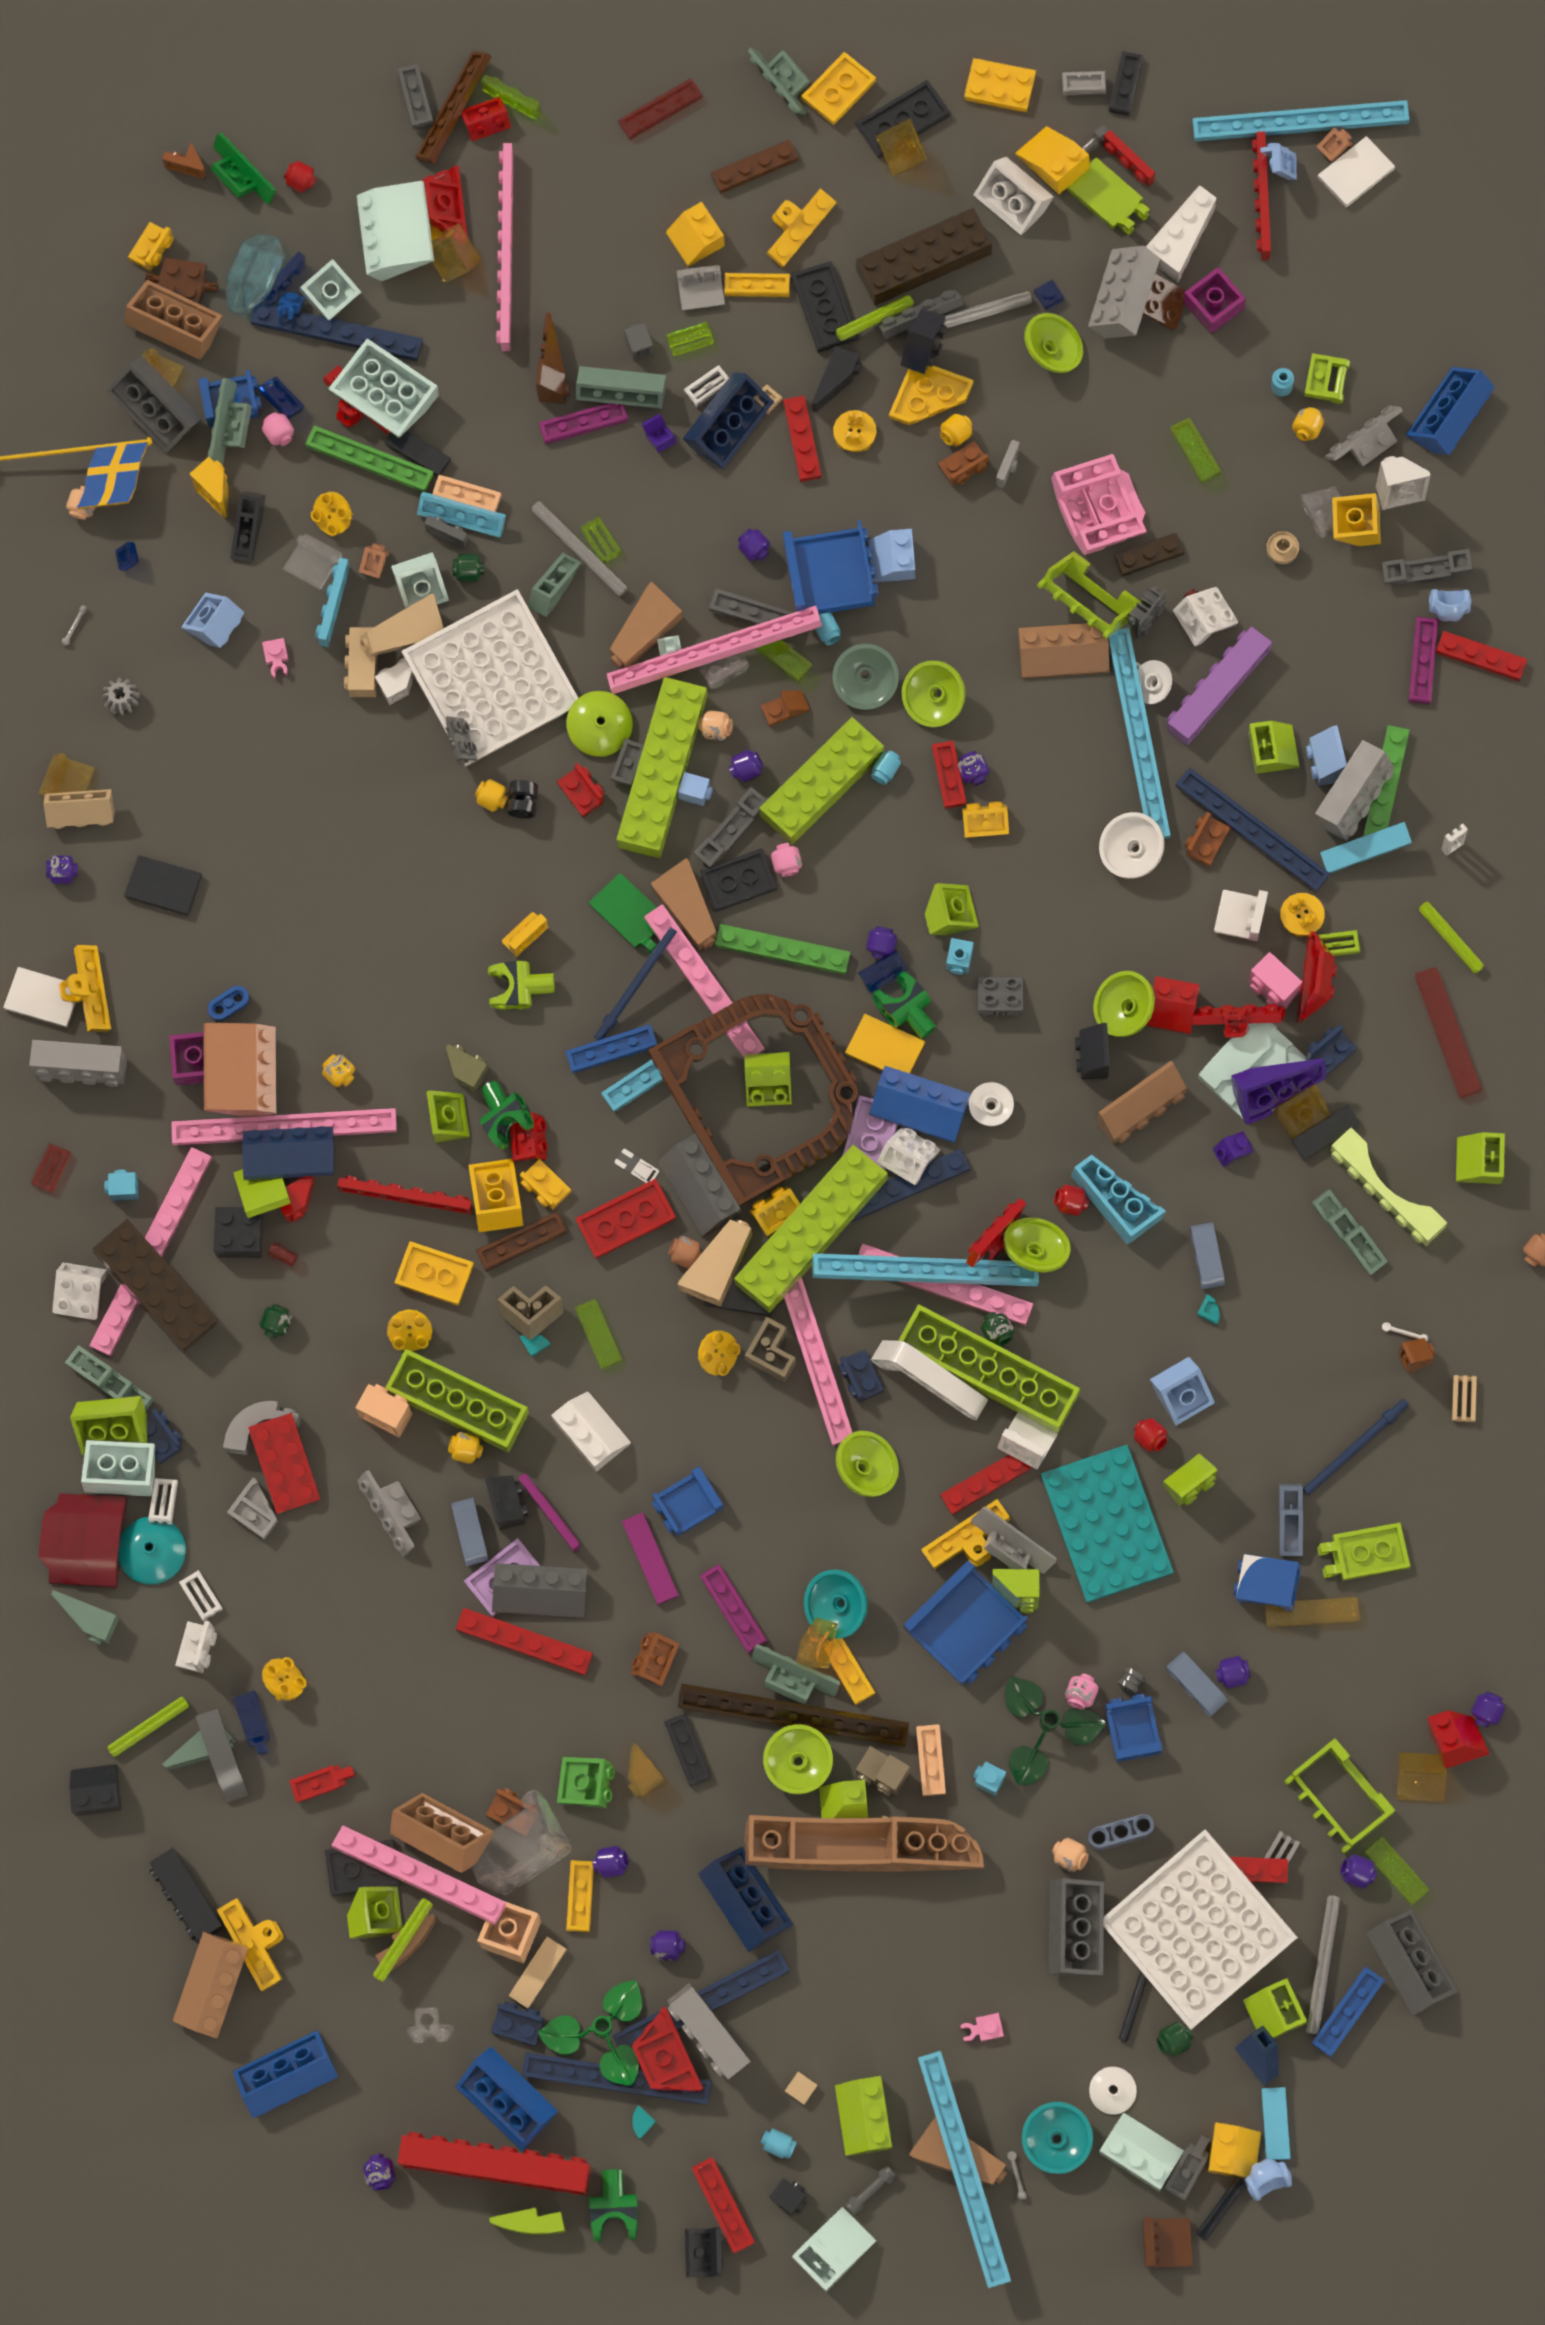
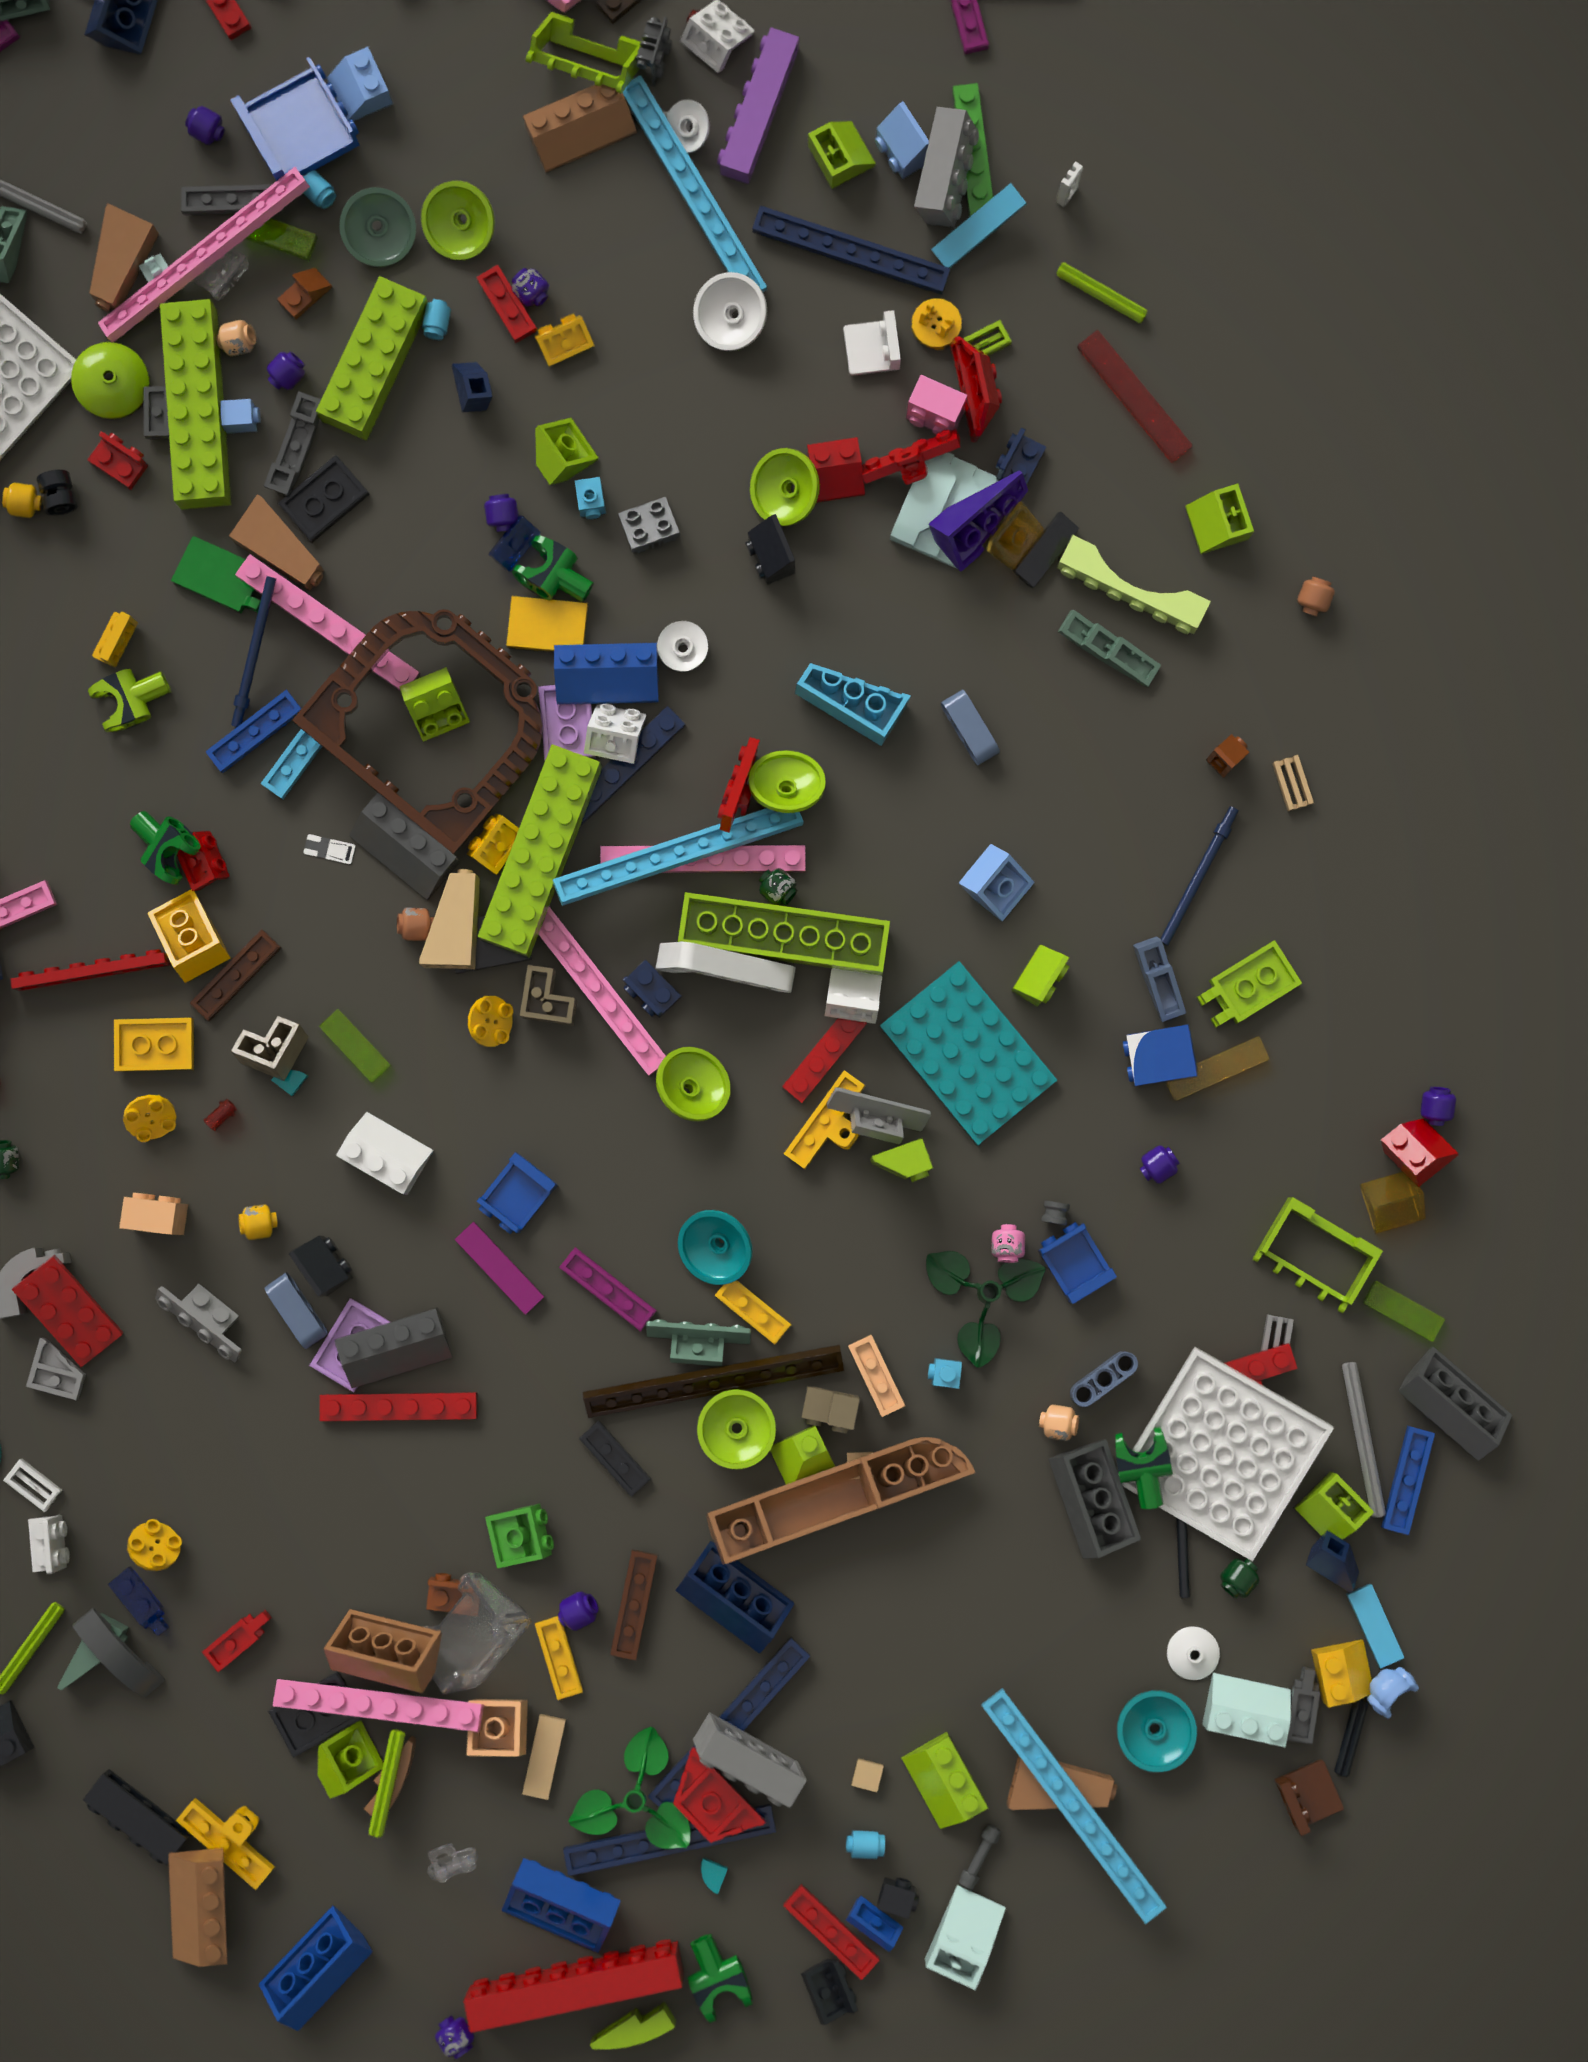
camera: 25 degrees left, 10 degrees up
(447, 1116) = (103, 868): lime slope -> none
(457, 1400) = (228, 1175): lime brick -> none
(466, 1069) = (105, 810): olive slope -> none
(466, 1350) = (220, 1114): none -> clear red pin
(517, 2023) = (543, 1820): dark blue bracket -> none
(545, 1184) = (238, 904): yellow bracket -> none
(549, 1512) = (374, 1259): magenta tile -> none
(591, 525) = (22, 165): clear neon green tile -> none
(625, 1218) = (337, 910): red plate -> none
(642, 1774) = (576, 1503): clear yellow slope -> none
(654, 1658) = (543, 1374): dark orange bracket -> none
(658, 433) = (56, 38): dark purple bracket -> none
(659, 1874) = (634, 1604): none -> reddish brown plate
(667, 1945) = (671, 1678): dark purple head -> none
(761, 2211) = (874, 1923): none -> blue plate
(782, 949) = (398, 557): bright green plate -> none
(786, 860) = (366, 458): bright pink head -> none
(817, 1644) = (711, 1297): clear yellow slope -> none
(895, 832) = (472, 386): none -> dark blue slope
(965, 1624) = (860, 1216): blue panel -> none
(987, 2027) = (1038, 1636): bright pink plate -> none
(1012, 2157) = (1114, 1763): light grey hinge -> none
(1071, 1200) = (804, 719): red head -> none
(1127, 1915) = (1144, 1468): none -> green connector
(1142, 1103) = (842, 588): medium nougat slope -> none
(1150, 1435) = (980, 942): red head -> none
(1196, 1684) = (1125, 1190): sand blue beam -> none
(1207, 839) = (807, 279): dark orange bracket -> none
(1209, 1310) = (993, 785): teal tile -> none
(1232, 1148) = (954, 602): dark purple bracket -> none
(1358, 1871) = (1365, 1328): dark purple head -> none
(1386, 1327) = (1184, 735): white hinge -> none

